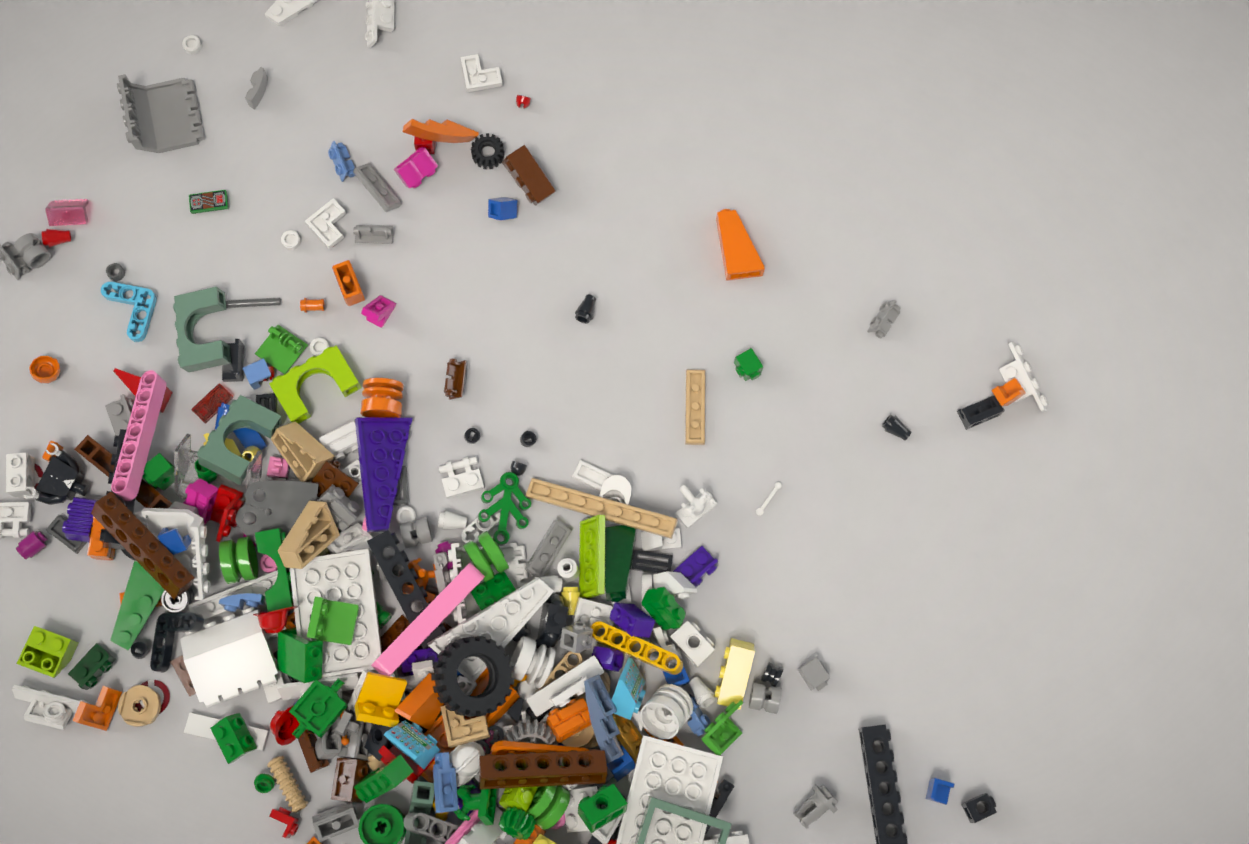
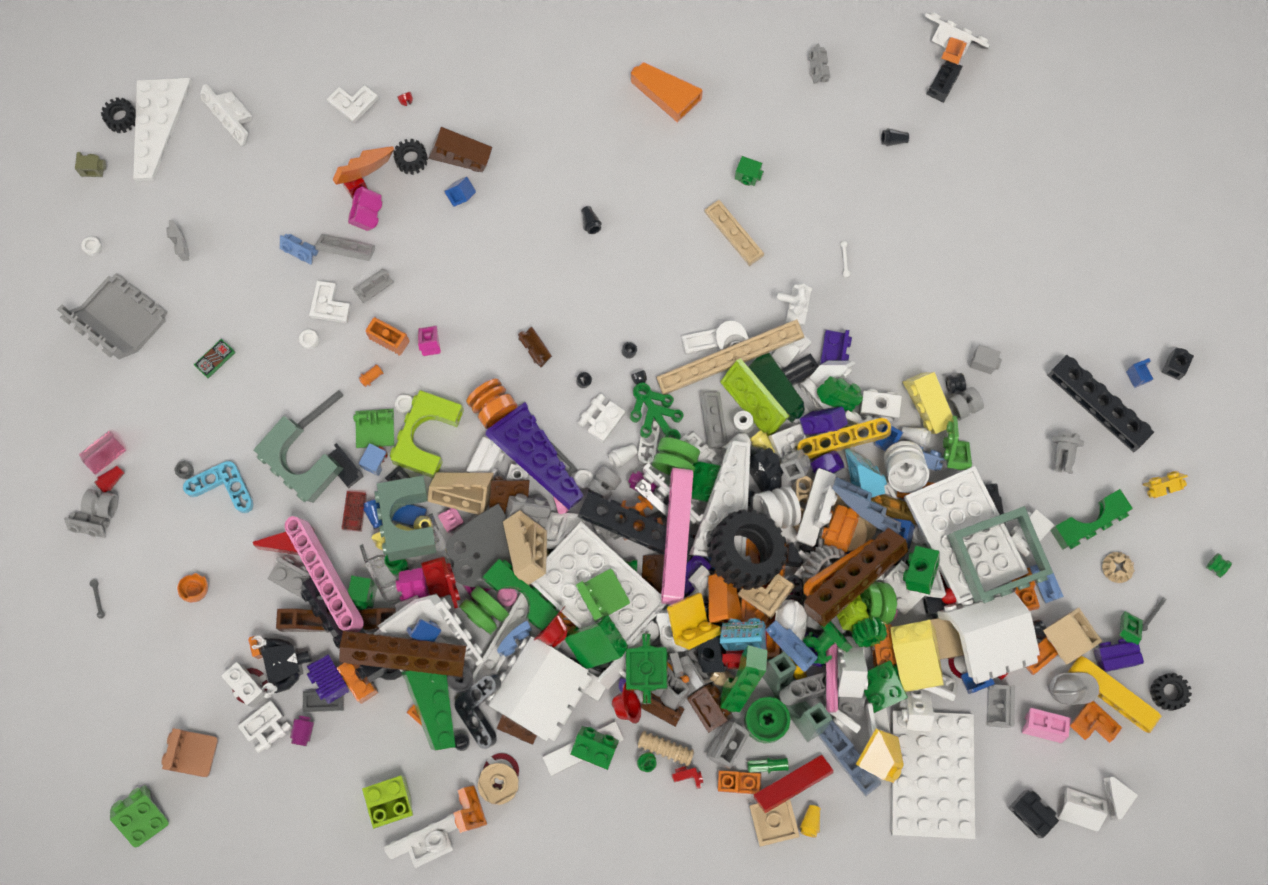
camera: 35 degrees left, 0 degrees up
(92, 667) = (432, 785): dark green bracket -> none

